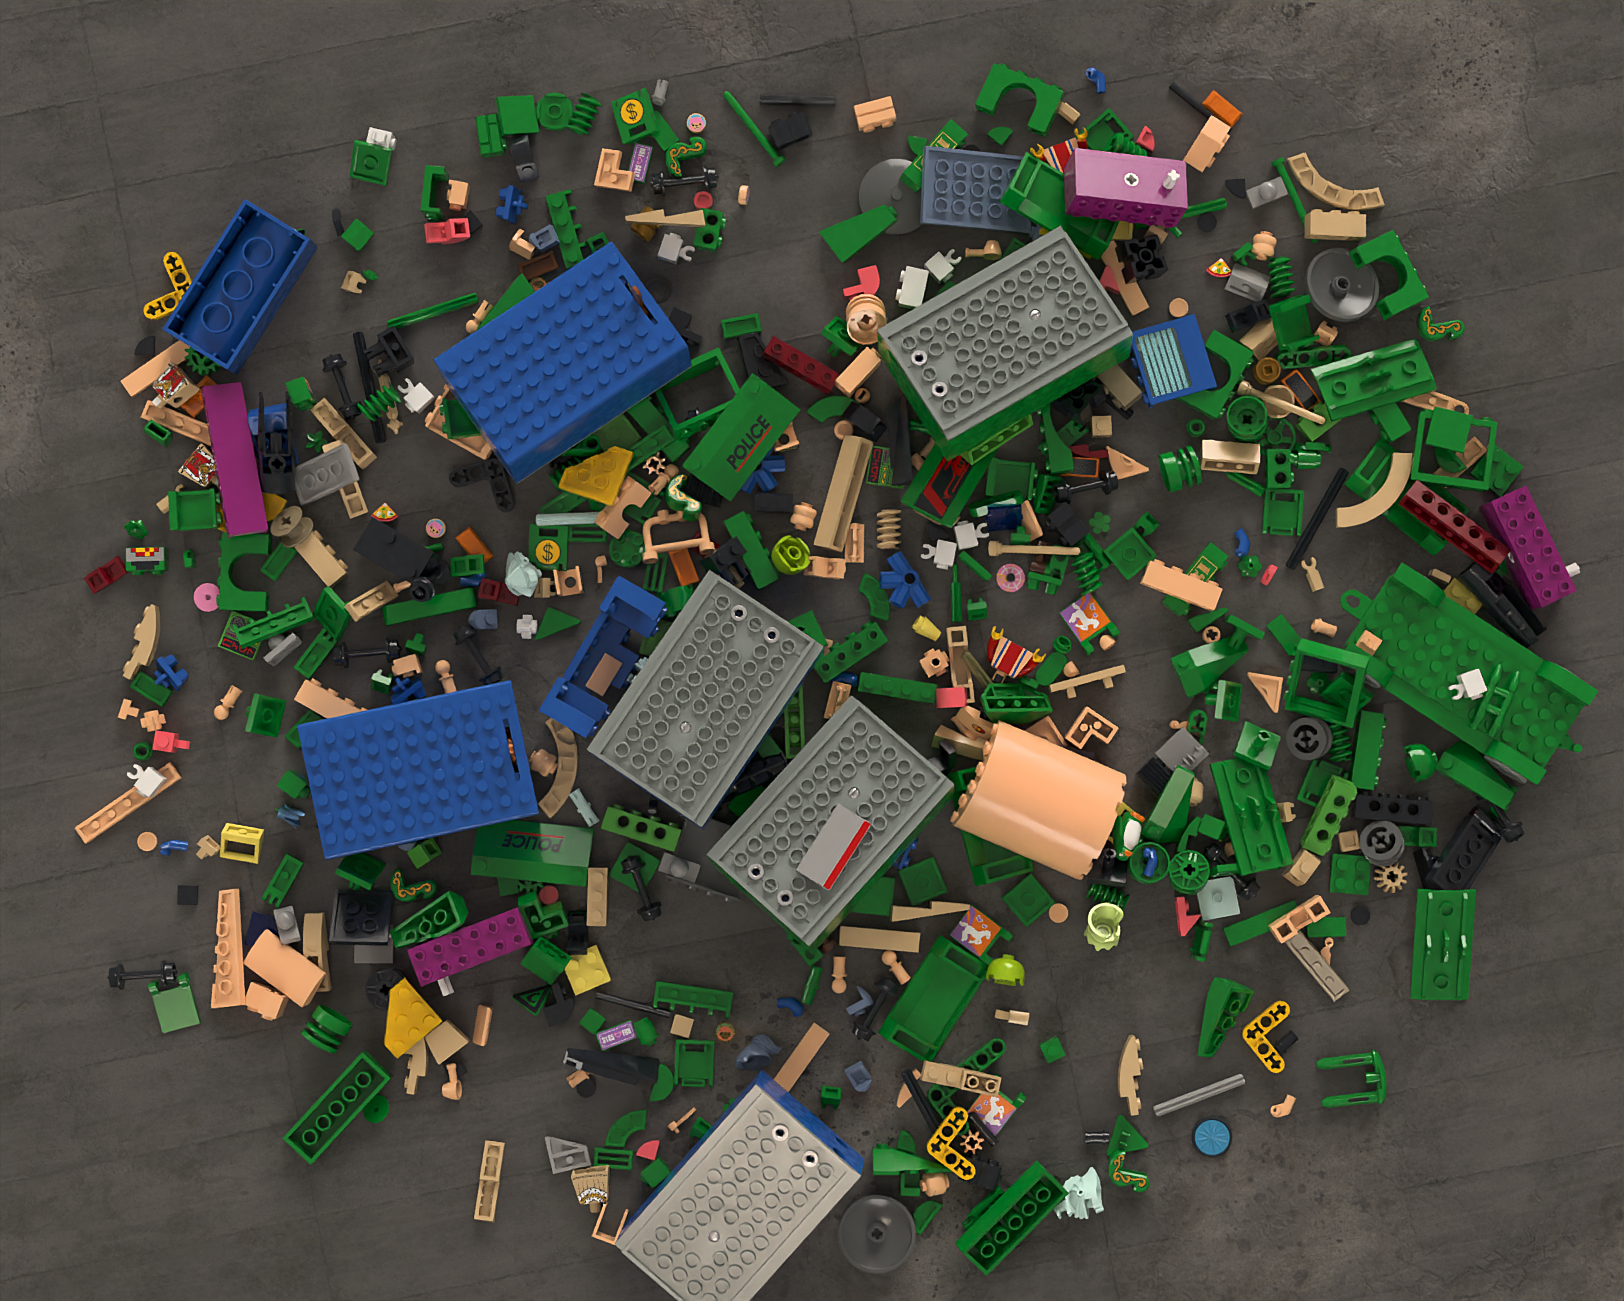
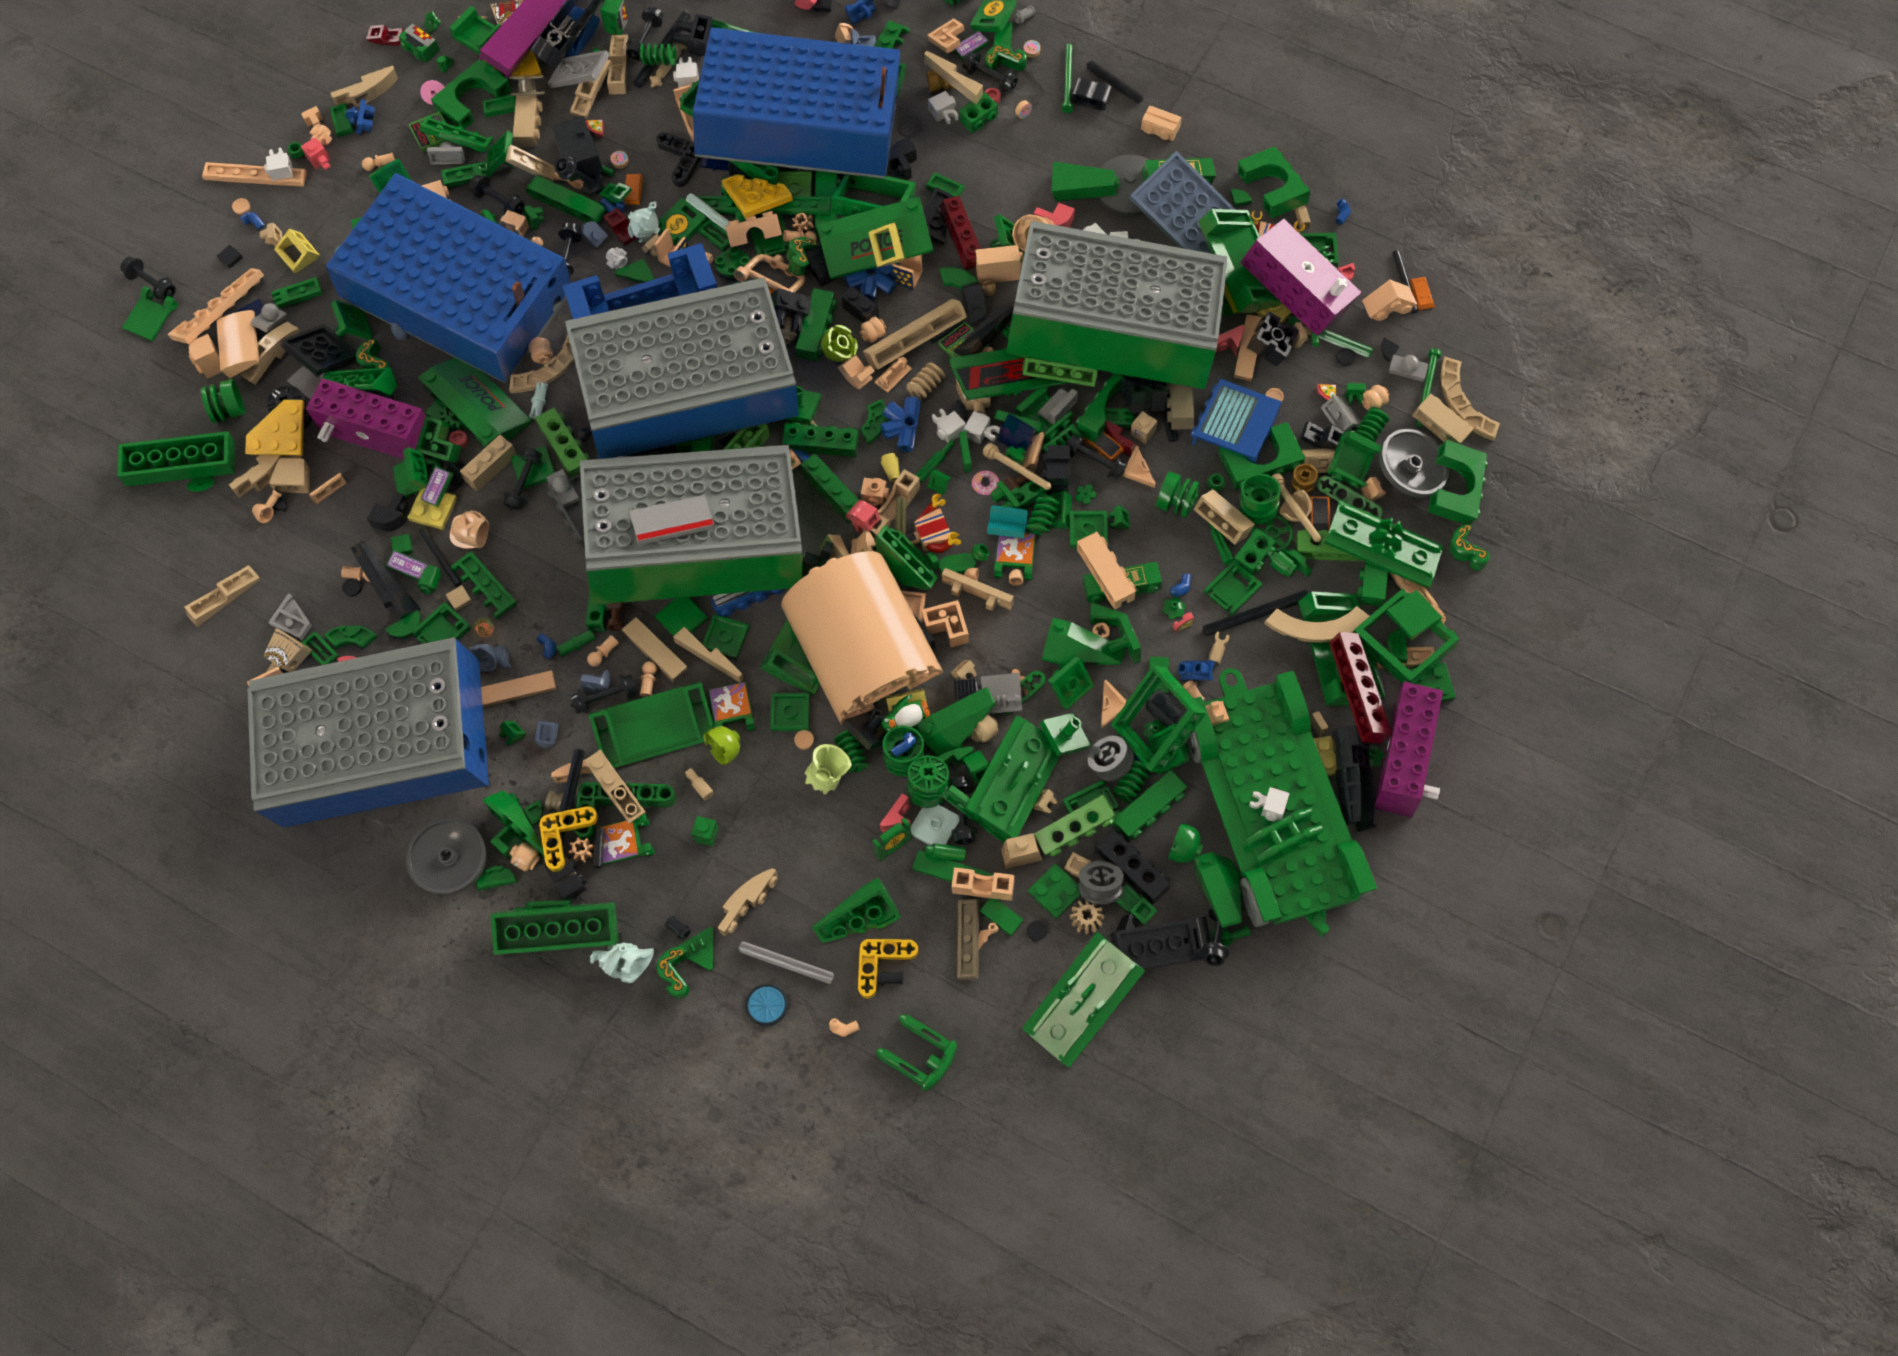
camera: 45 degrees right, 20 degrees down
(424, 853) = (405, 346): bright green brick -> none
(533, 999) = (373, 494): piece -> none
(580, 954) = (436, 486): none -> tile
(639, 966) = (469, 530): none -> light nougat helmet
(755, 423) = (895, 241): none -> light yellow tile
(843, 428) = (955, 295): light nougat tile -> none
(916, 1121) = (553, 800): none -> dark tan wheel
(1015, 463) = (1058, 405): none -> light grey panel
(1062, 603) = (1007, 522): none -> teal panel
(1133, 756) = (962, 669): none -> tan tile
(1246, 913) = (946, 852): none -> green cylinder
(1314, 609) = (1196, 670): none -> blue hips

